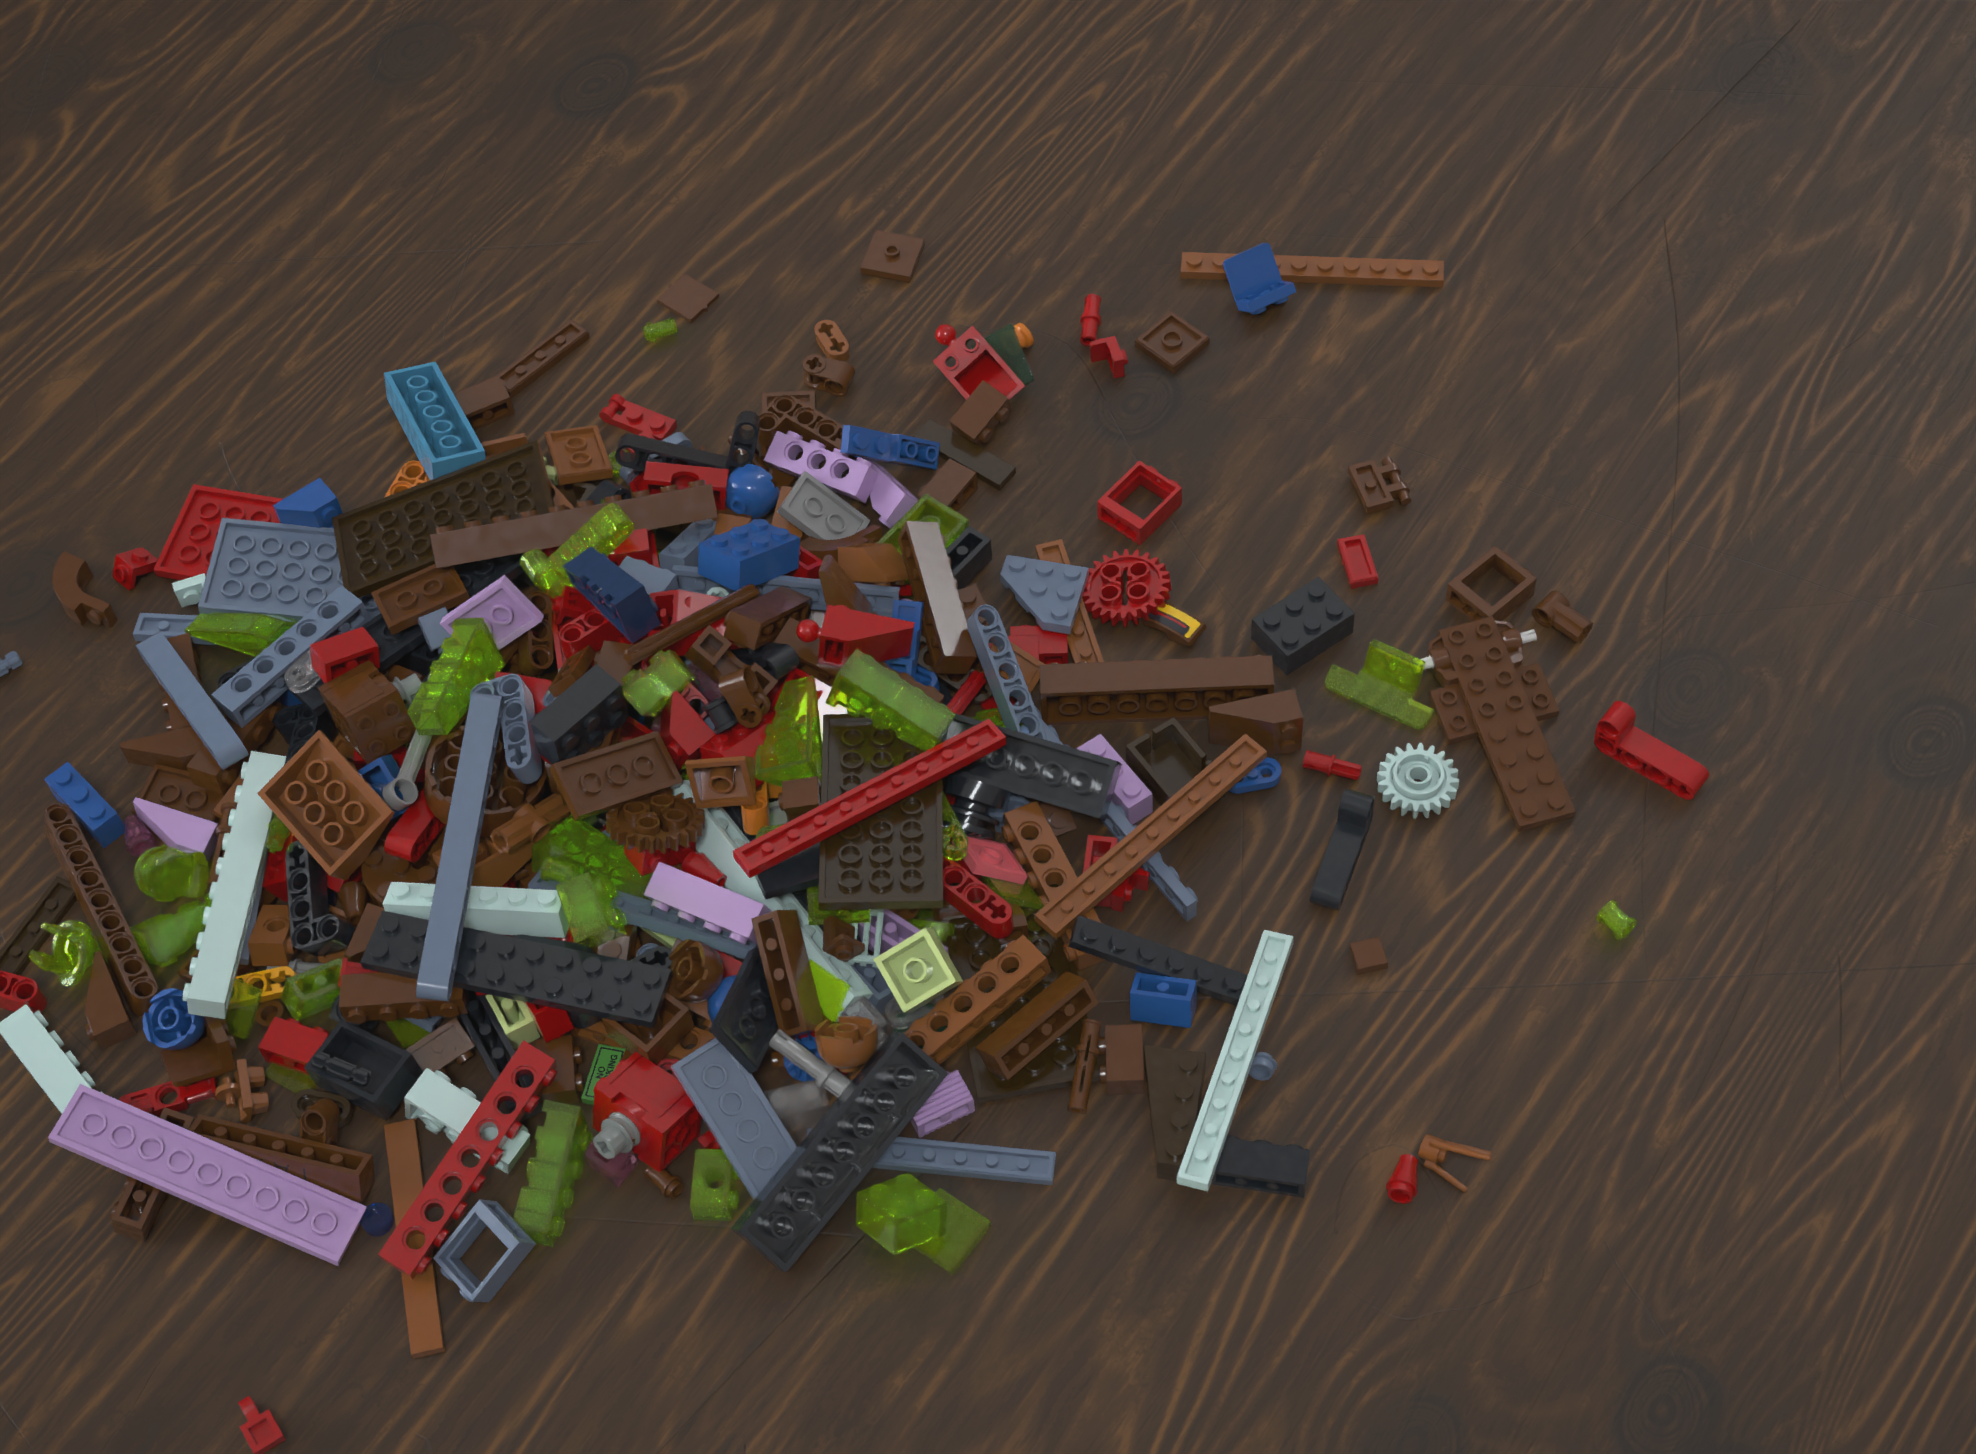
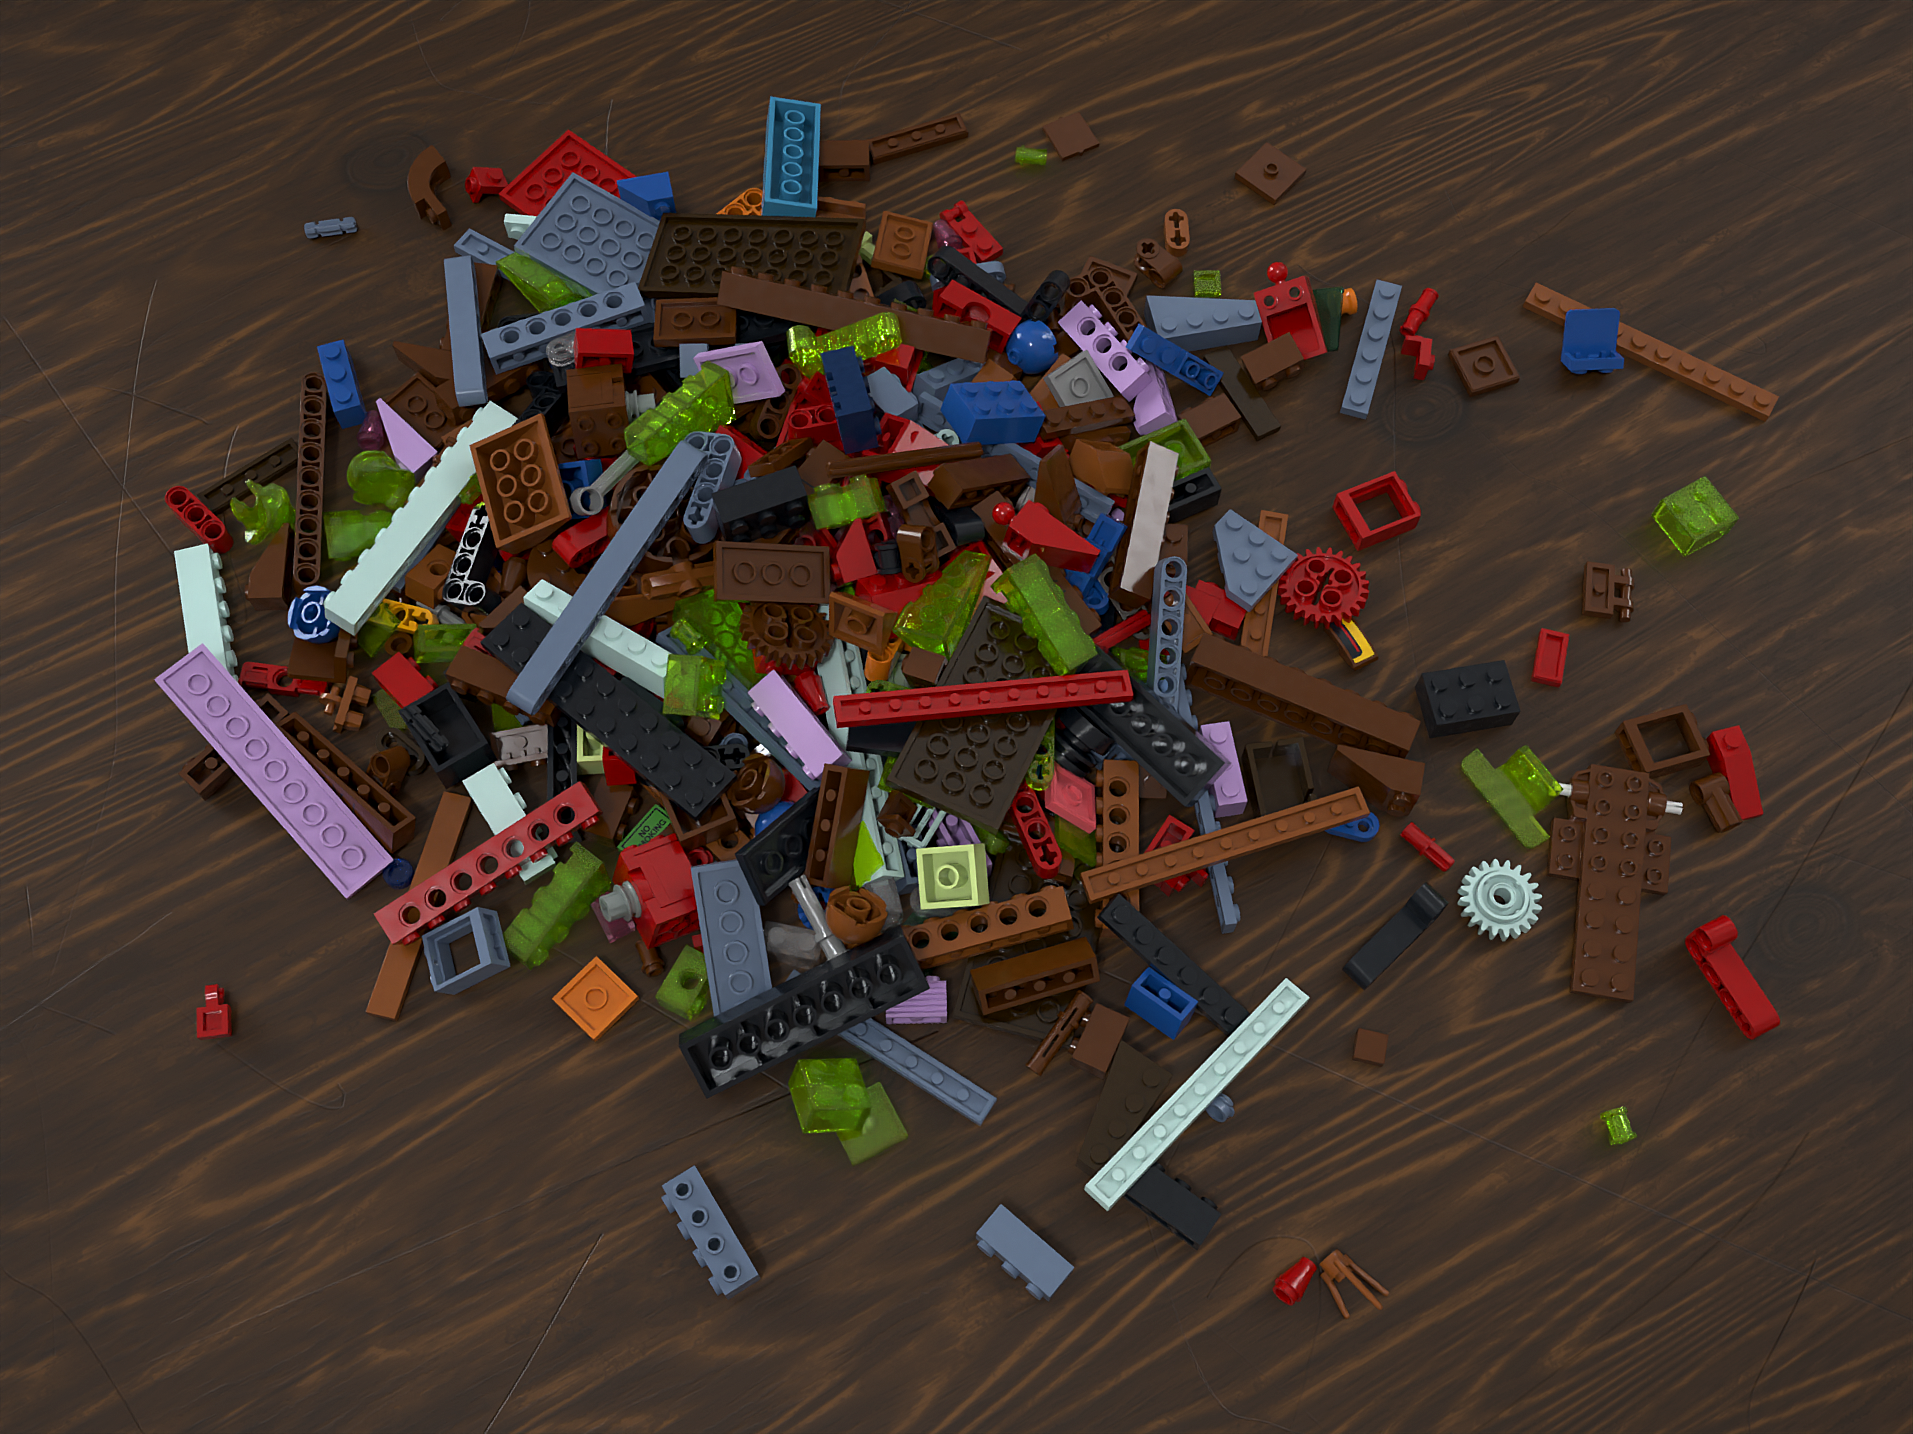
camera: 20 degrees right, 10 degrees up
(614, 430) = (946, 235): none -> clear pink cone
(631, 1240) = (595, 999): none -> orange plate
(835, 529) = (1085, 417): none -> reddish brown plate
(850, 1389) = (710, 1232): none -> sand blue brick
(883, 374) = (1207, 283): none -> clear neon green tile
(899, 405) = (1202, 321): none -> sand blue wedge
(1063, 369) = (1371, 349): none -> sand blue plate
(1150, 1270) = (1023, 1253): none -> sand blue brick
(1422, 389) = (1695, 516): none -> clear neon green brick
(1558, 574) = (1734, 760): none -> red slope

